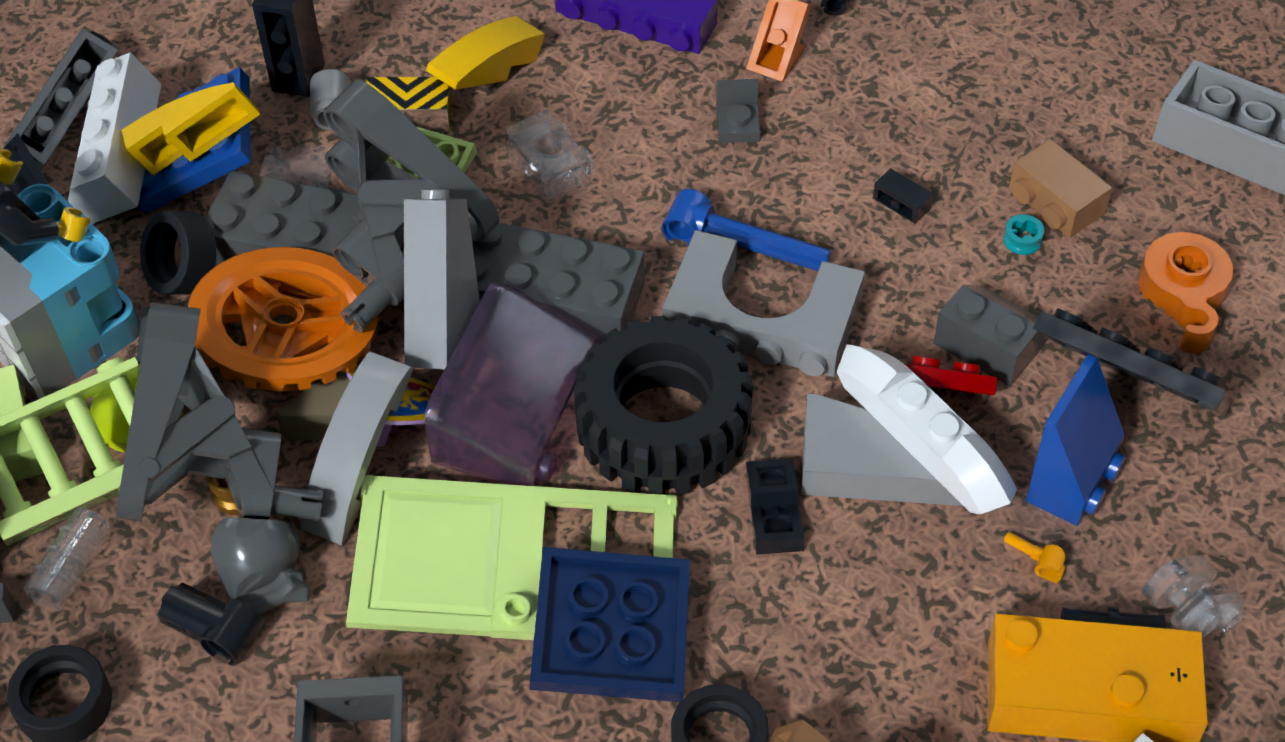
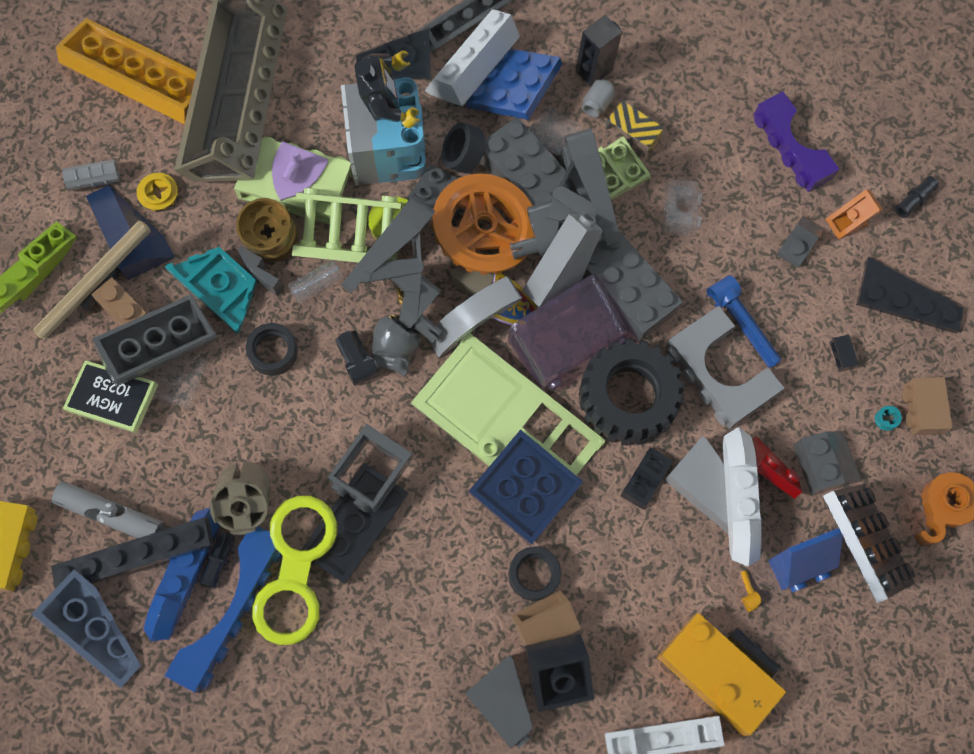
camera: 30 degrees right, 20 degrees up
(188, 126) = (508, 81): yellow slope -> none
(487, 54) = (693, 125): yellow slope -> none
(920, 95) = (899, 296): none -> black wing
(1199, 605) = (795, 682): clear brick -> none

